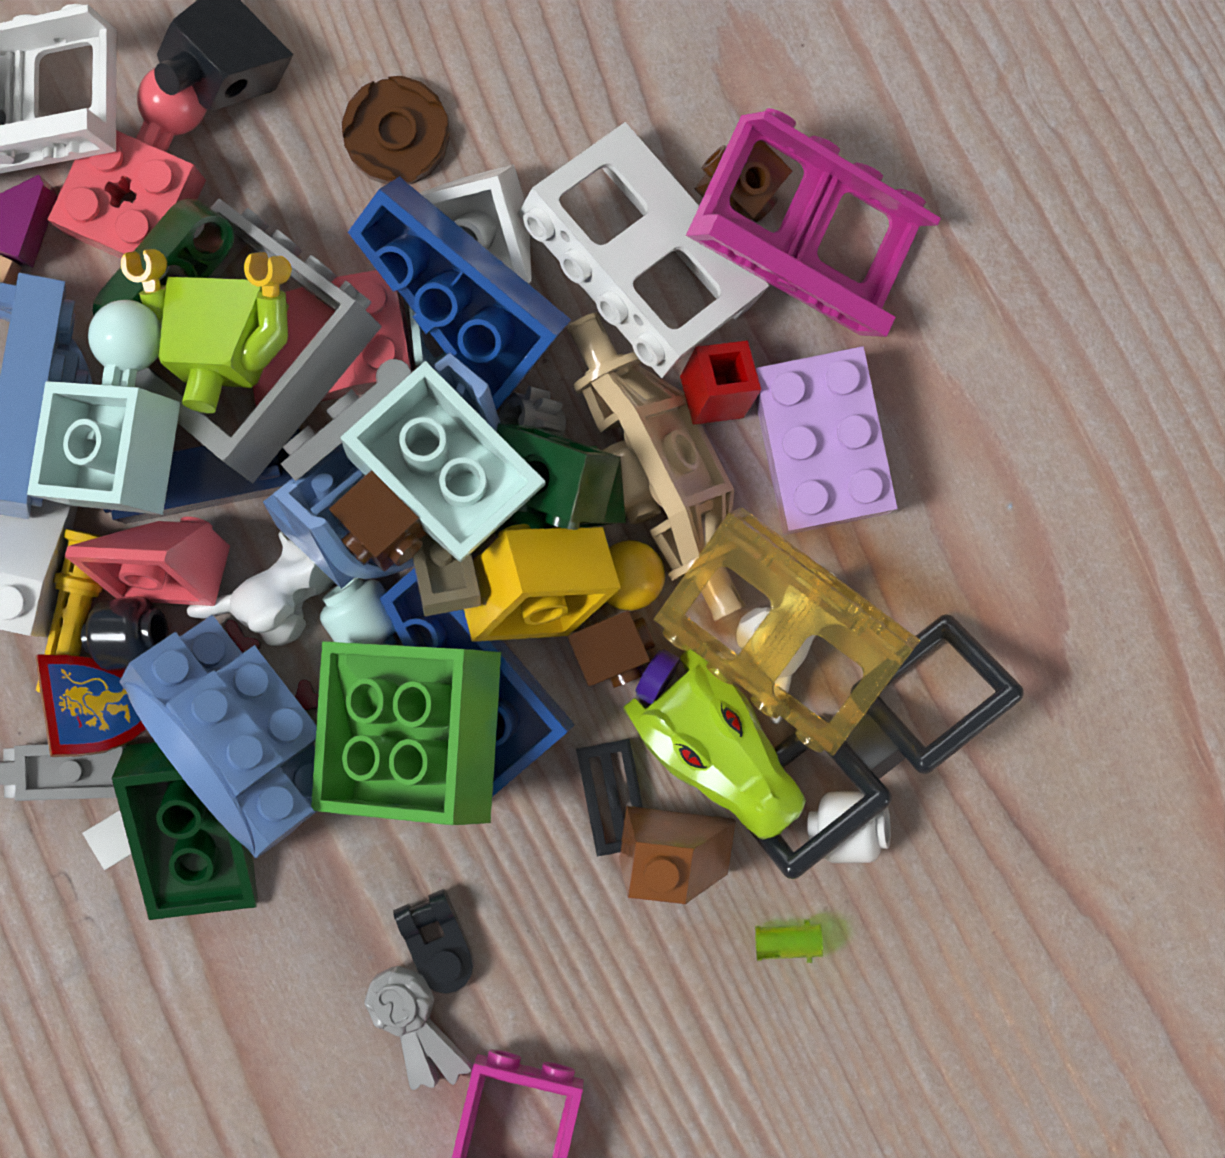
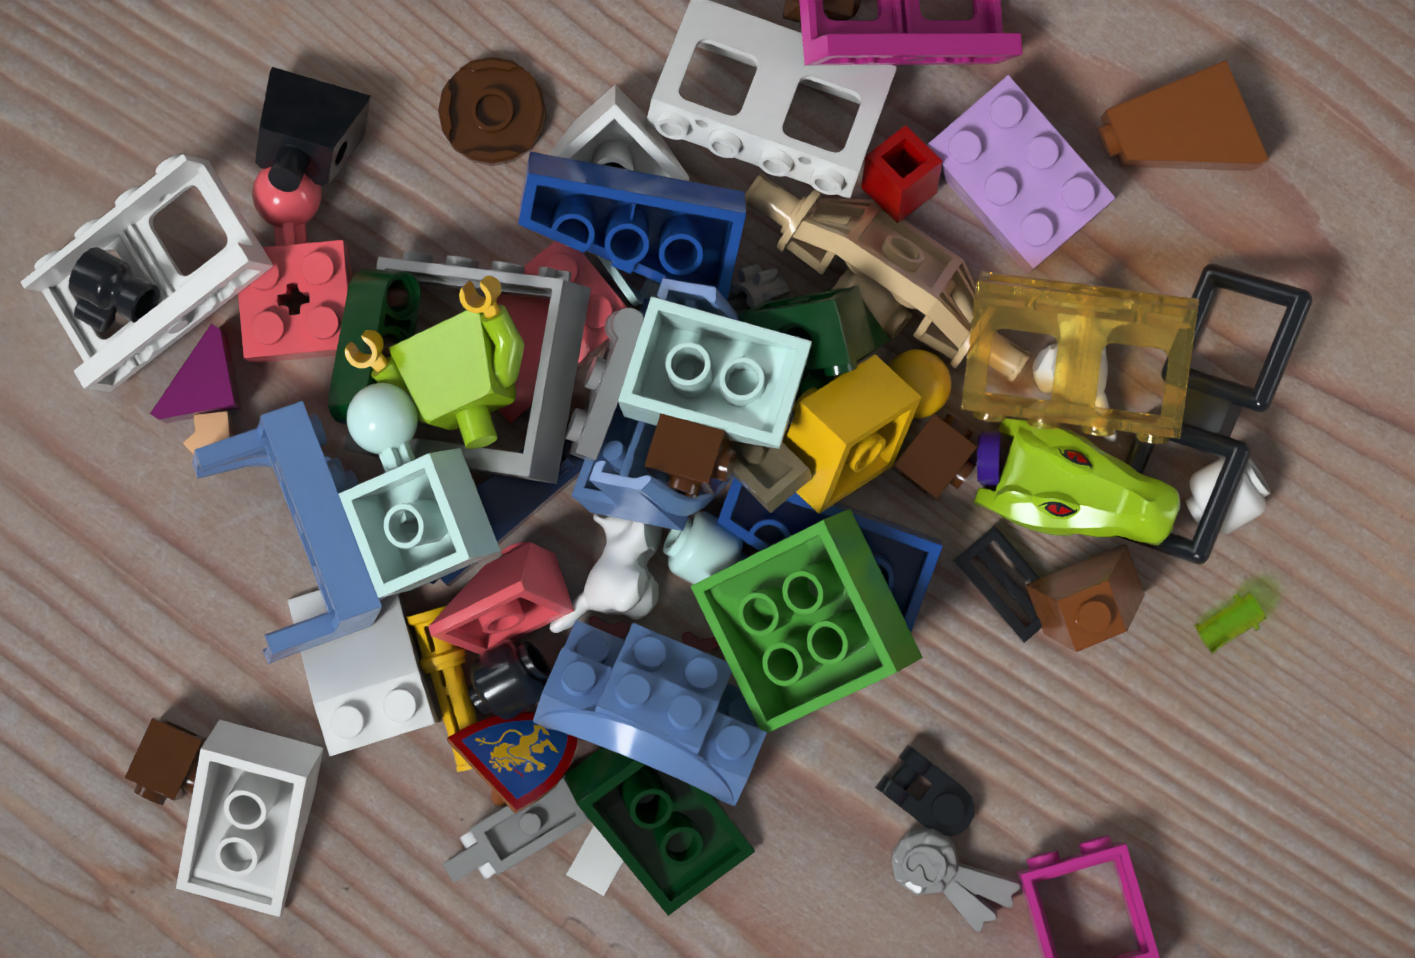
camera: 30 degrees left, 0 degrees up
(996, 480) = (1185, 126): none -> dark orange slope

